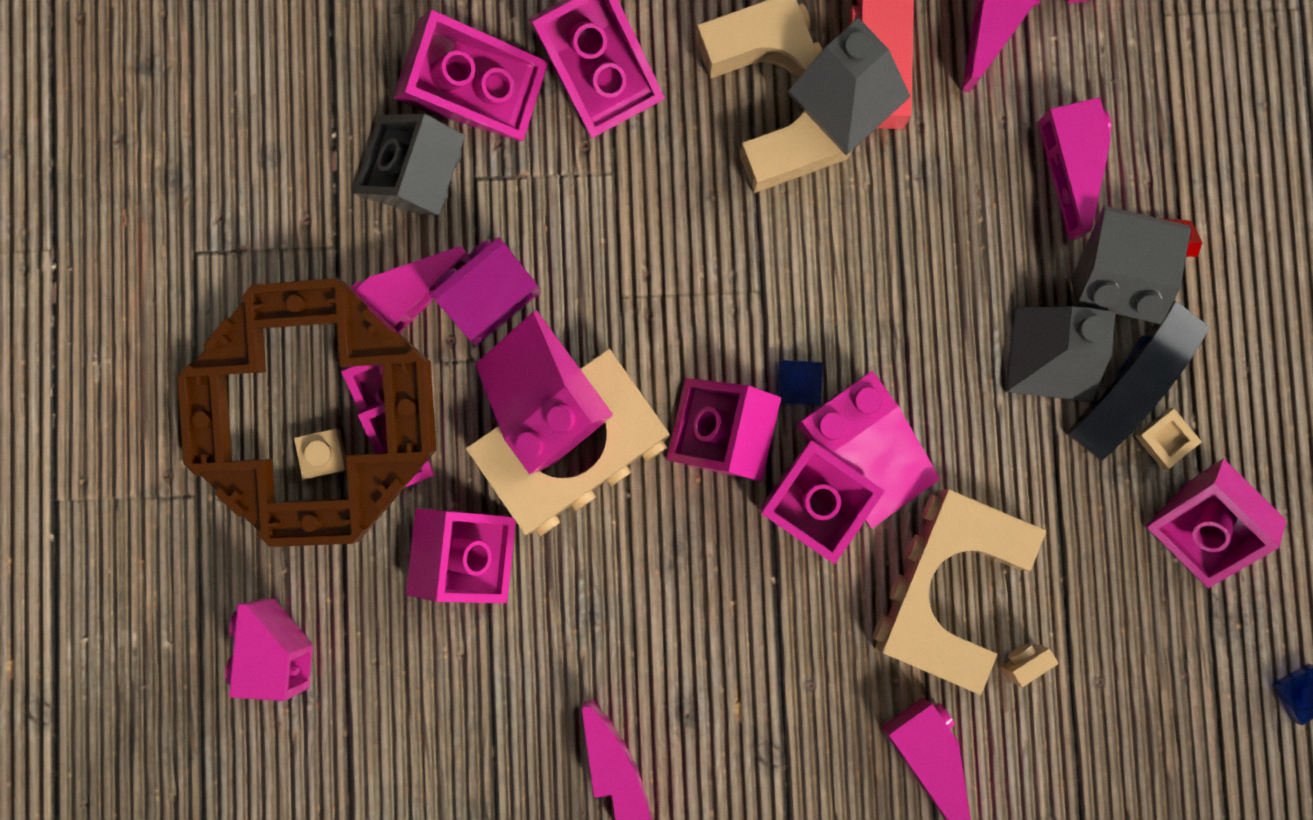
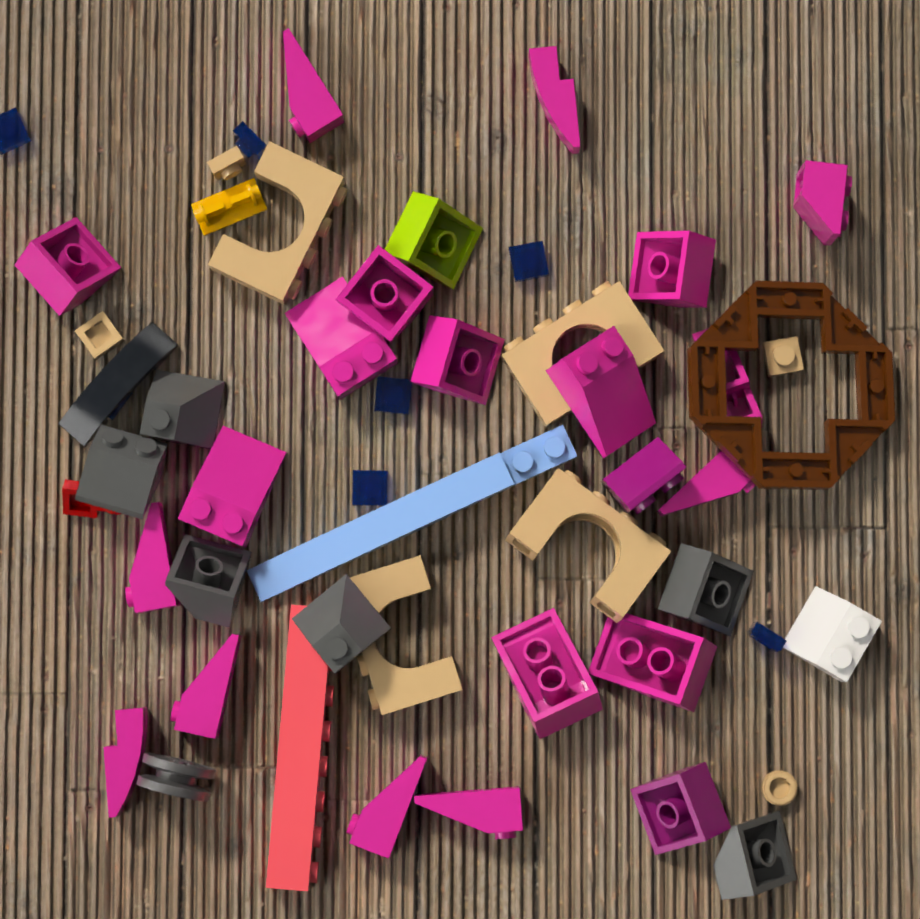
camera: 170 degrees left, 0 degrees up
(254, 116) = (831, 634): none -> white slope
(333, 110) = (766, 637): none -> clear blue tile
(492, 198) = (636, 552): none -> tan arch
(640, 558) = (528, 261): none -> clear blue plate
(762, 579) = (433, 239): none -> lime slope
(765, 240) = (411, 513): none -> light blue slope
(820, 269) = (370, 488): none -> clear blue plate
(990, 258) = (232, 486): none -> dark pink slope
(1005, 694) = (248, 141): none -> clear blue plate
(1011, 148) = (208, 578): none -> dark grey slope
(1020, 609) = (228, 206): none -> yellow hinge

